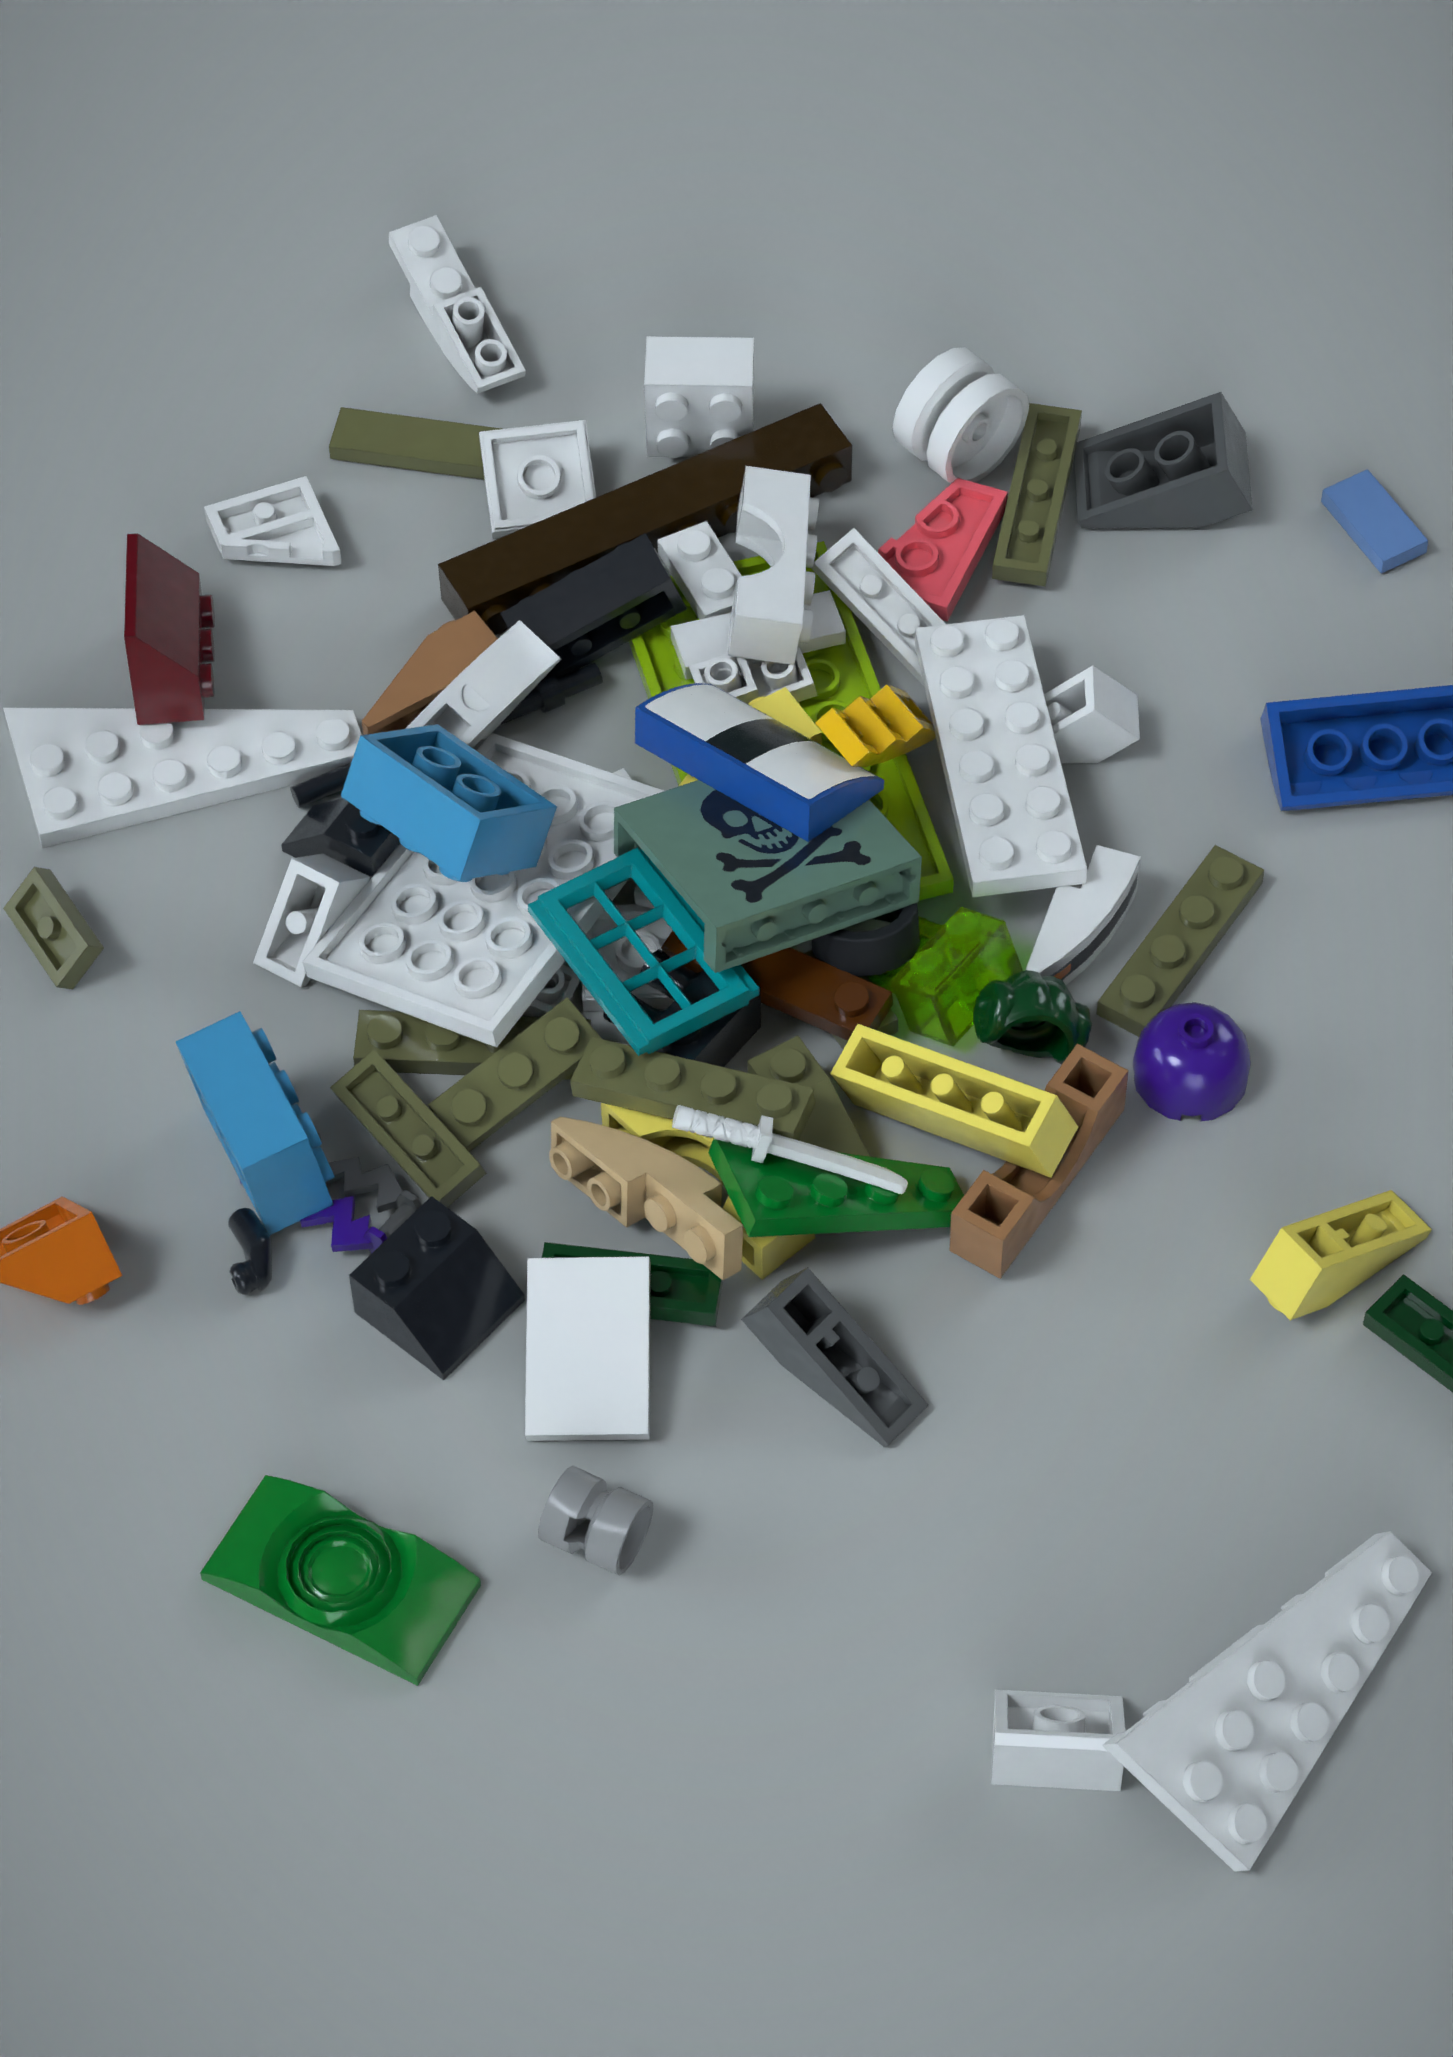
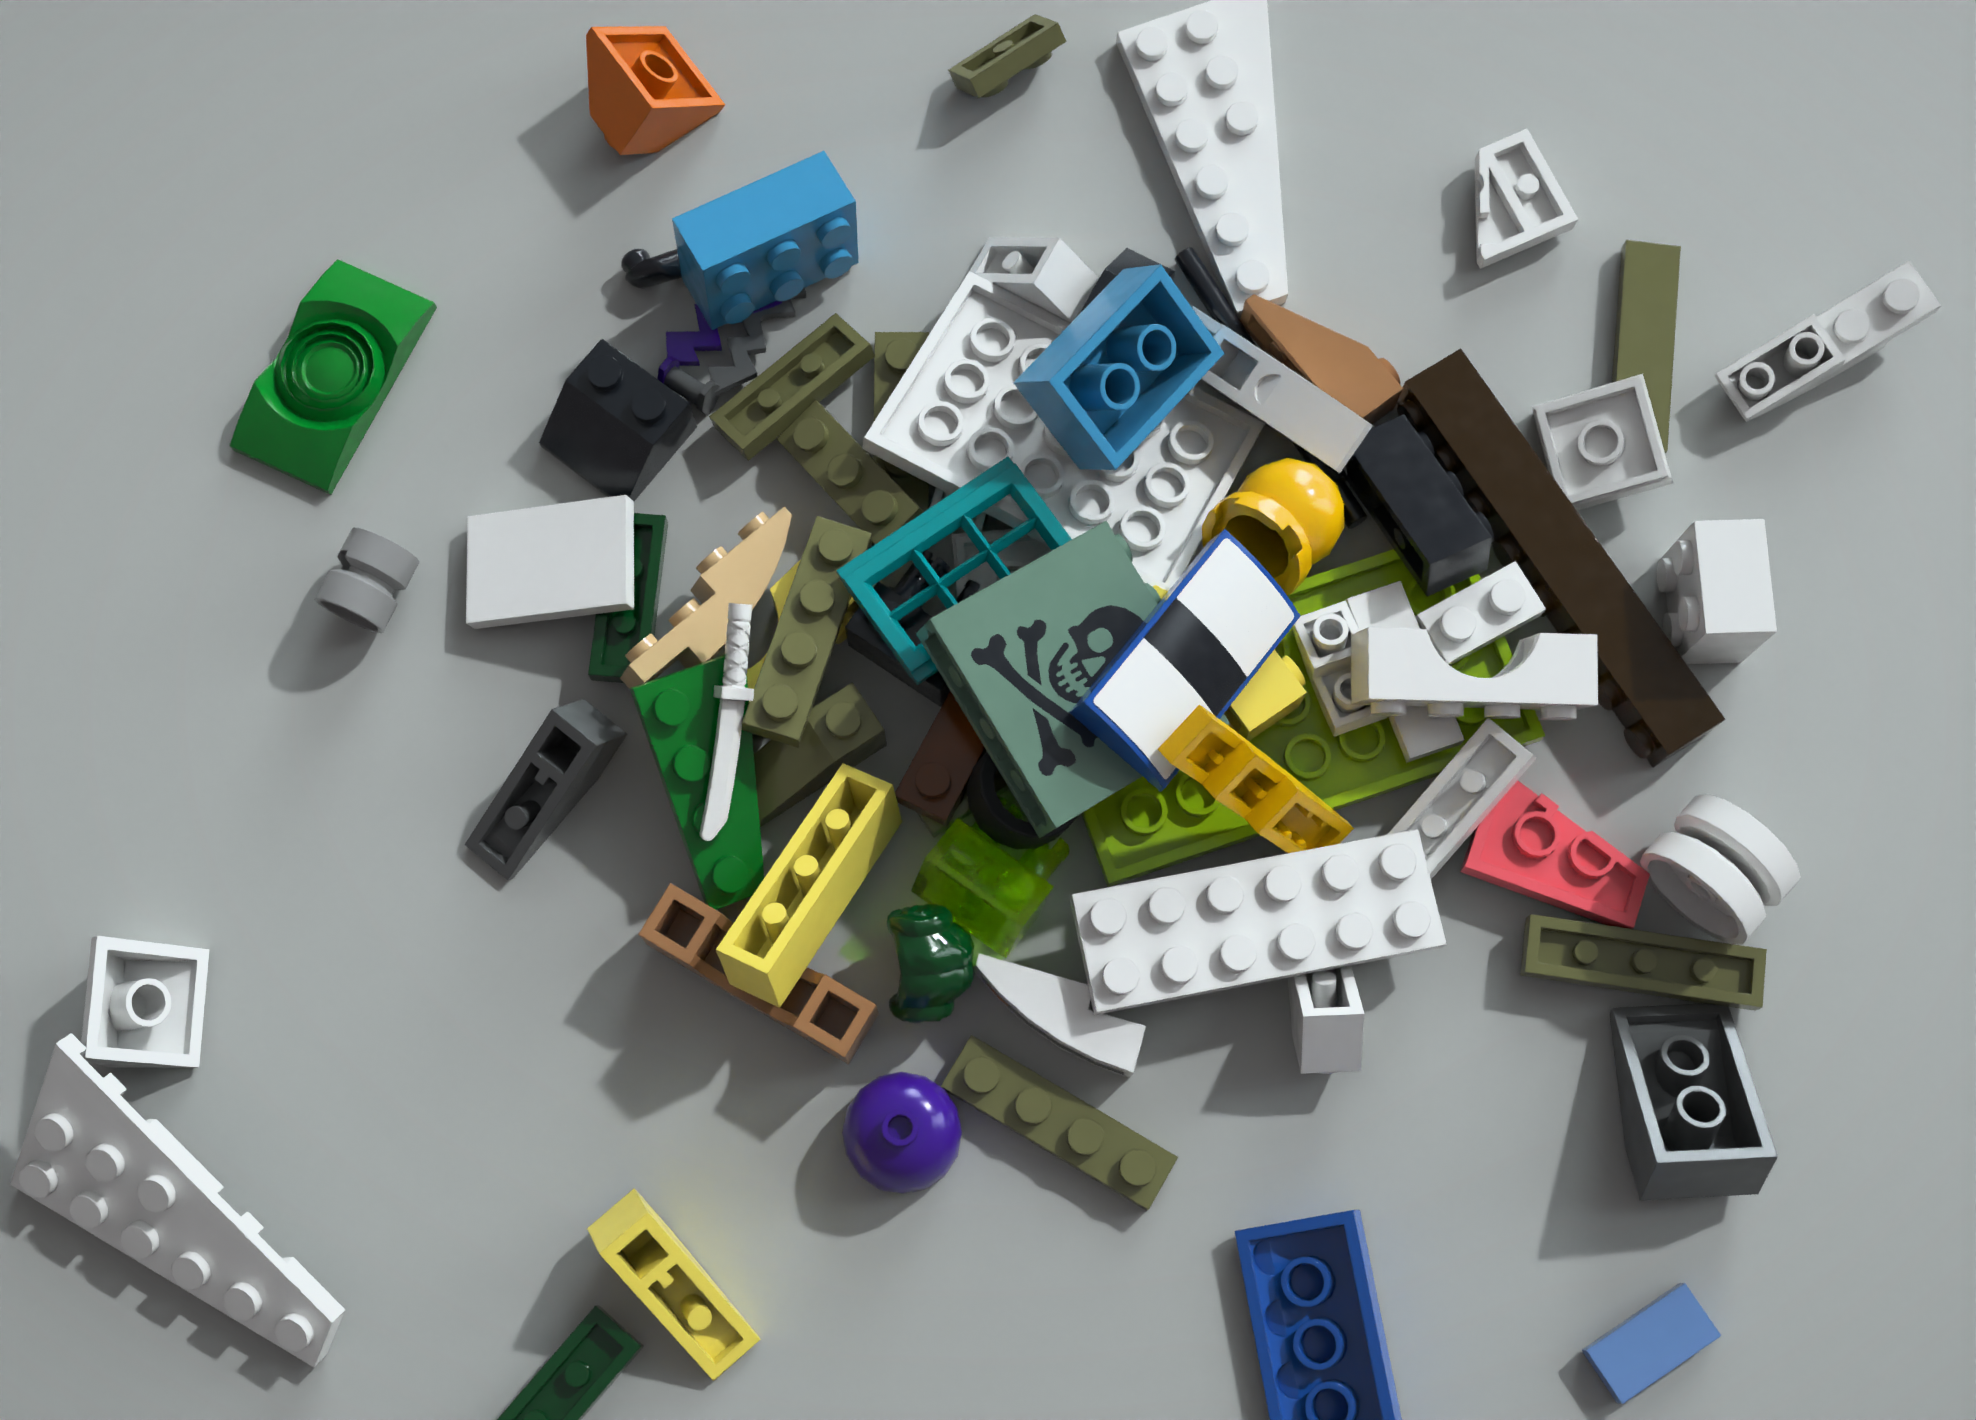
camera: 85 degrees right, 20 degrees up
(166, 635) = (1343, 98): dark red slope -> none
(592, 712) = (1284, 517): none -> yellow tile

